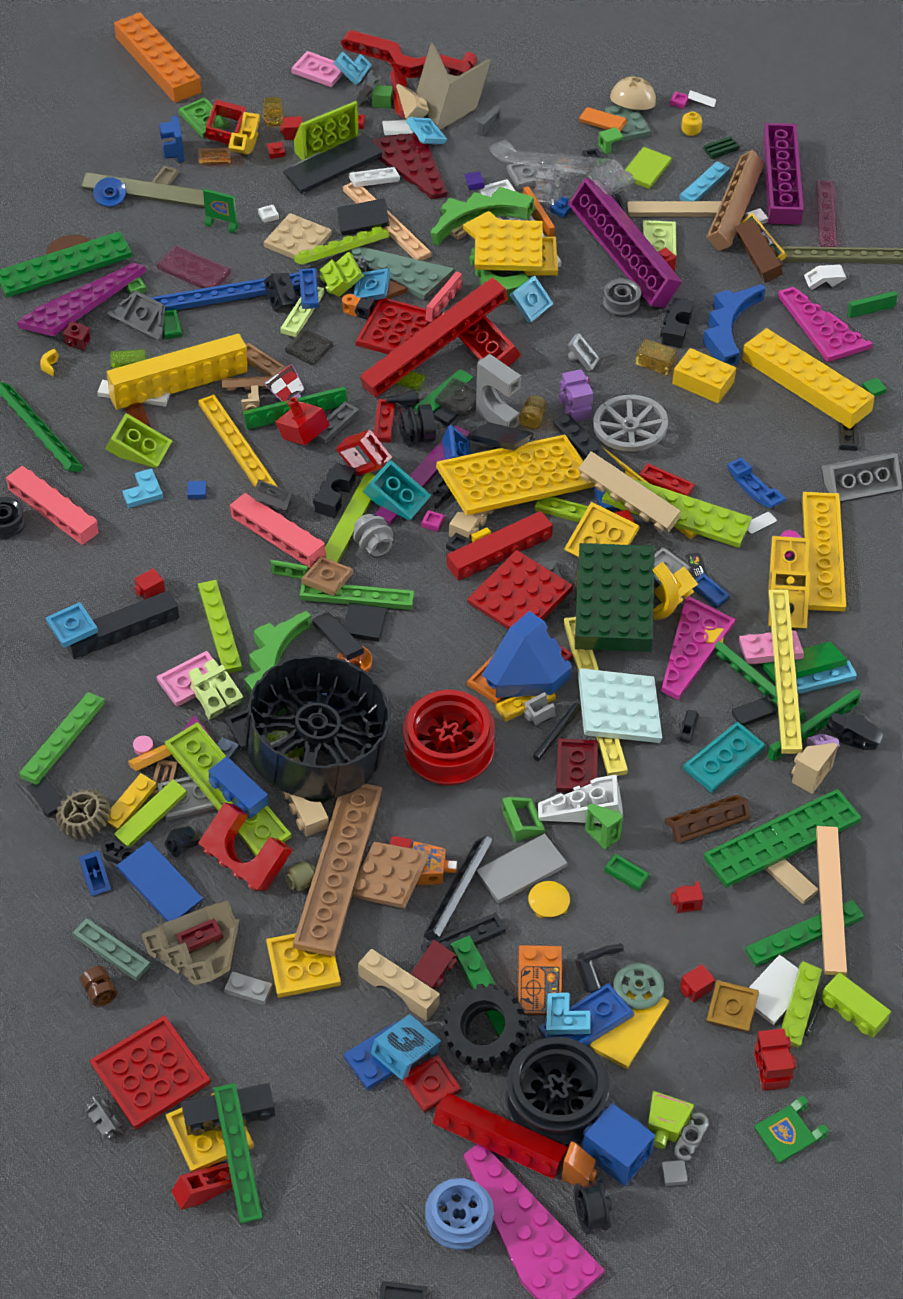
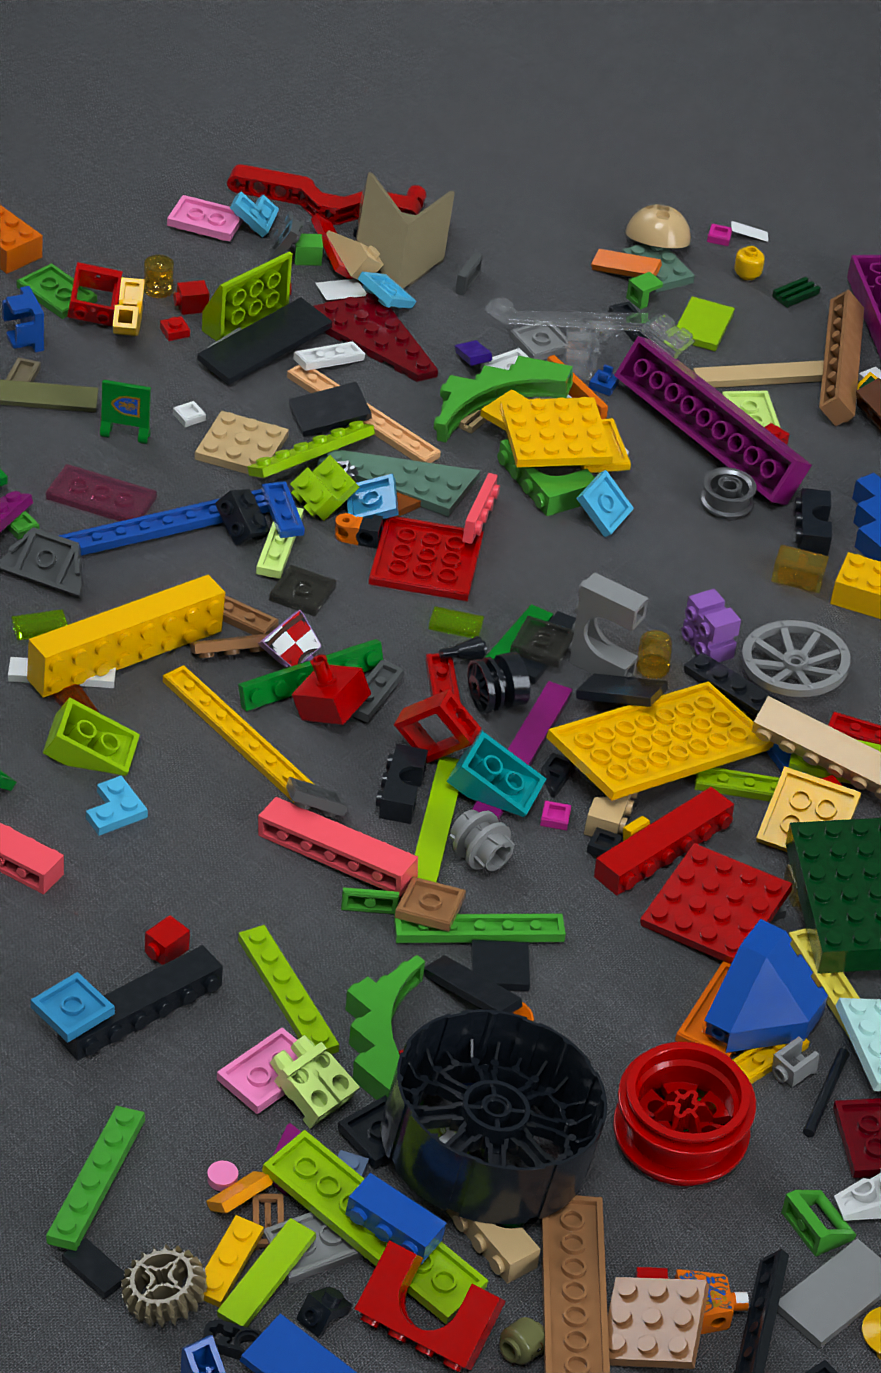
camera: 15 degrees left, 10 degrees down
(171, 324) = (93, 576): green tile -> none
(196, 490) = (196, 800): blue tile -> none
(214, 156) = (89, 340): clear orange plate -> none
(253, 399) = (245, 668): tan bracket -> none
(433, 337) = (486, 563): red brick -> none
(455, 444) = (558, 705): blue slope -> none
(487, 339) = (554, 557): red slope -> none
(583, 352) = (698, 568): light grey tile -> none
(705, 182) = (789, 338): medium azure plate -> none

